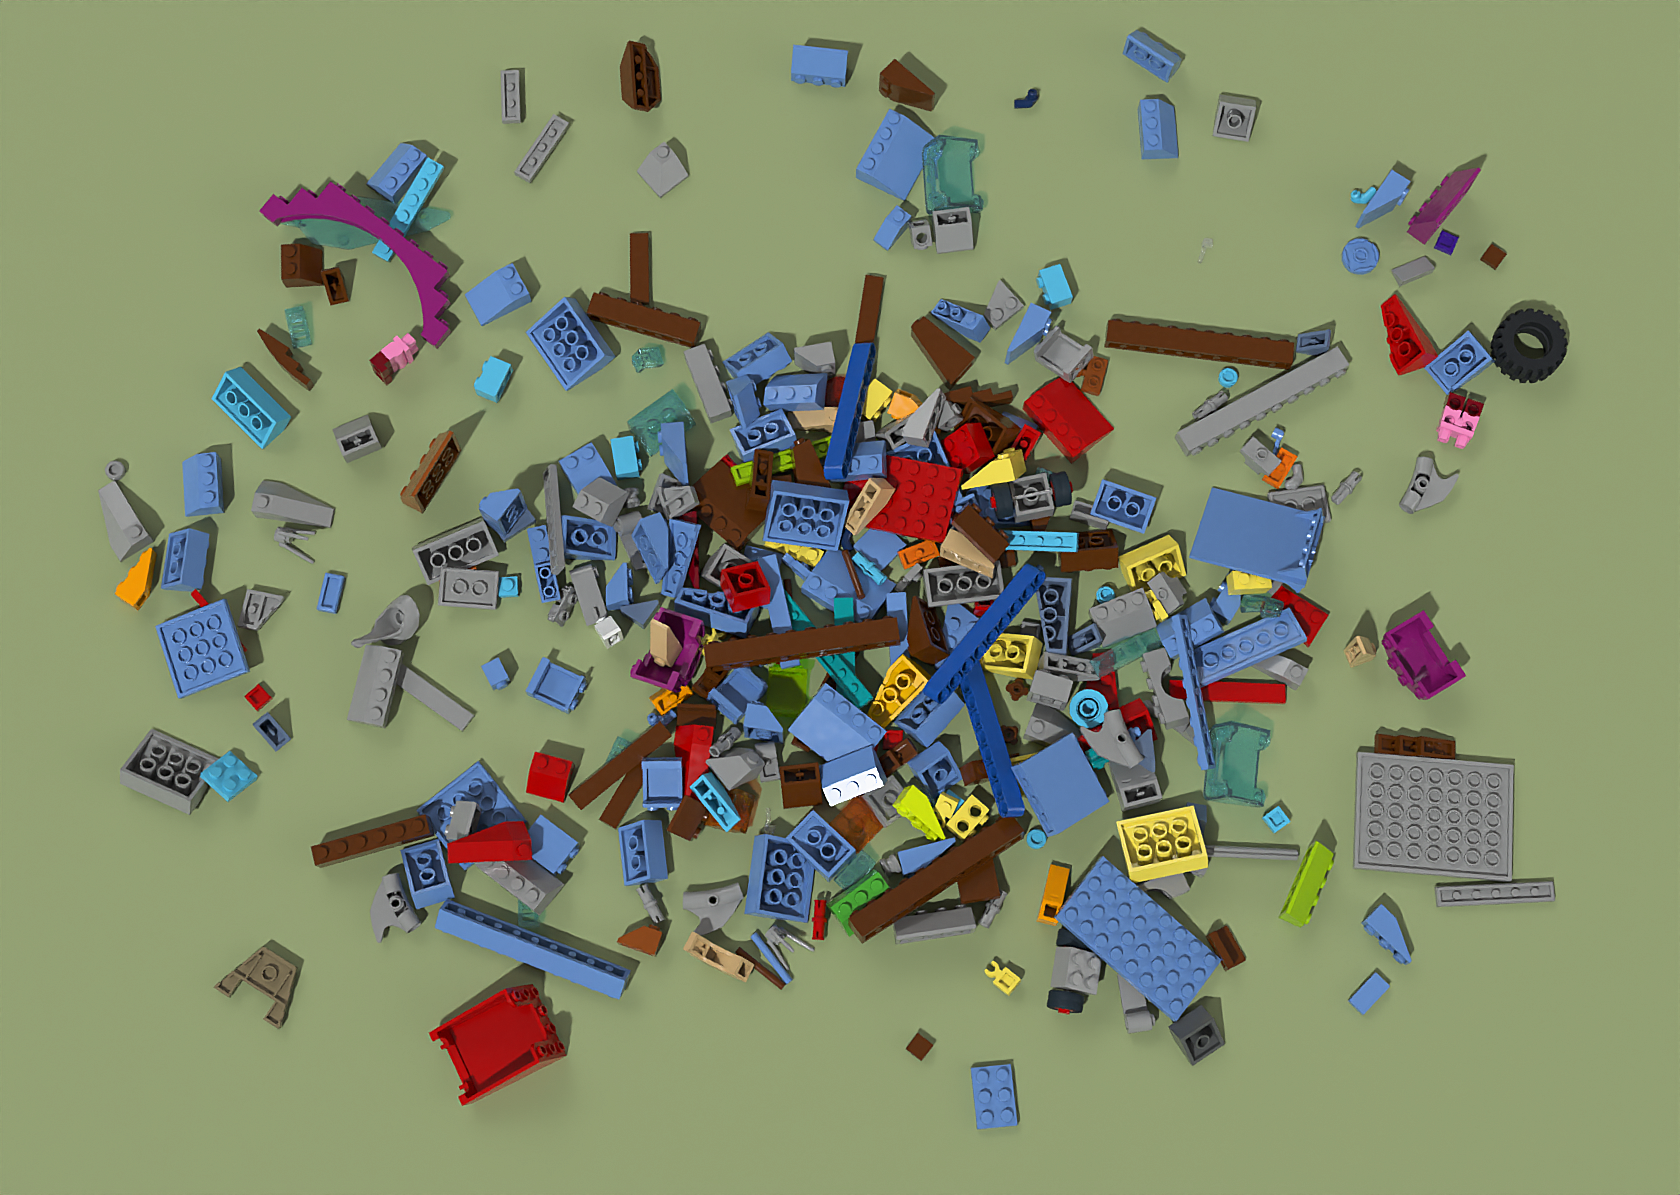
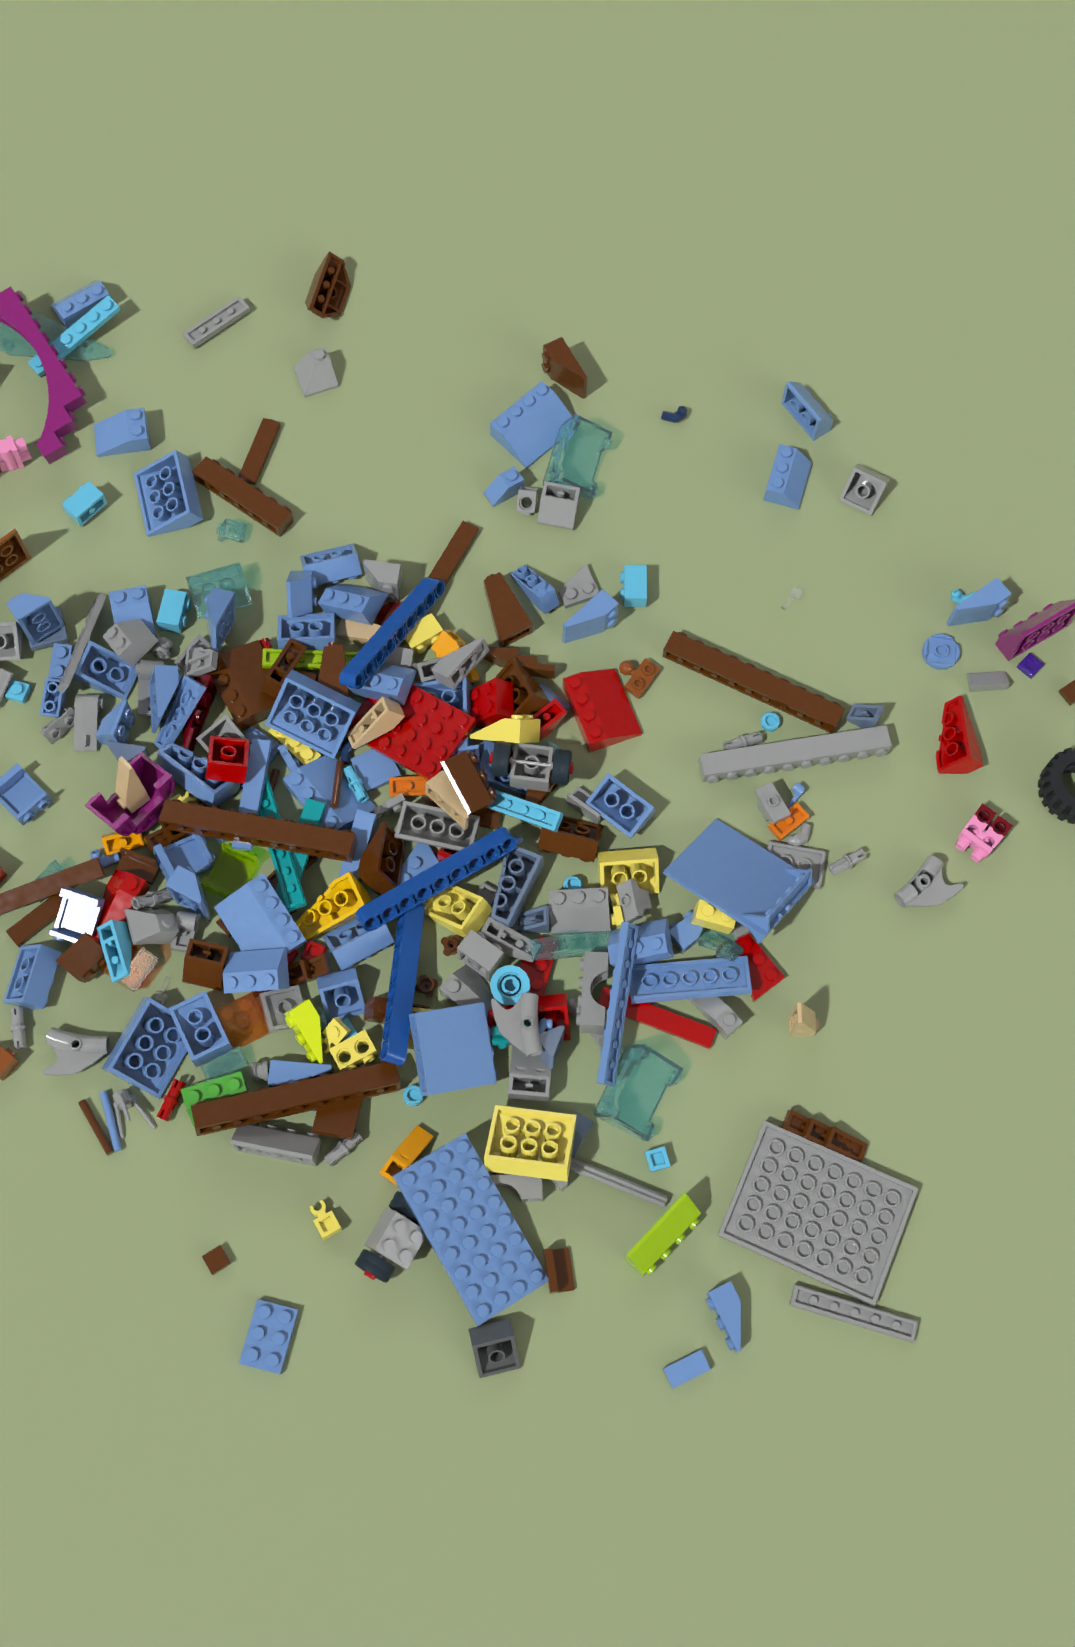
camera: 20 degrees right, 5 degrees down
(510, 96) = (208, 270): light grey plate -> none
(608, 631) = (88, 761): white slope -> none
(707, 383) = (276, 568): light grey brick -> none
(718, 957) = (56, 1100): tan arch -> none
(819, 66) = (494, 326): medium blue slope -> none
(949, 416) = (486, 669): light grey brick -> none
(1062, 354) = (618, 649): light grey panel -> none
(1134, 1008) = (443, 1299): light grey door -> none
(1419, 658) = (859, 1047): magenta cylinder -> none
(1459, 363) = (1003, 780): medium blue slope -> none

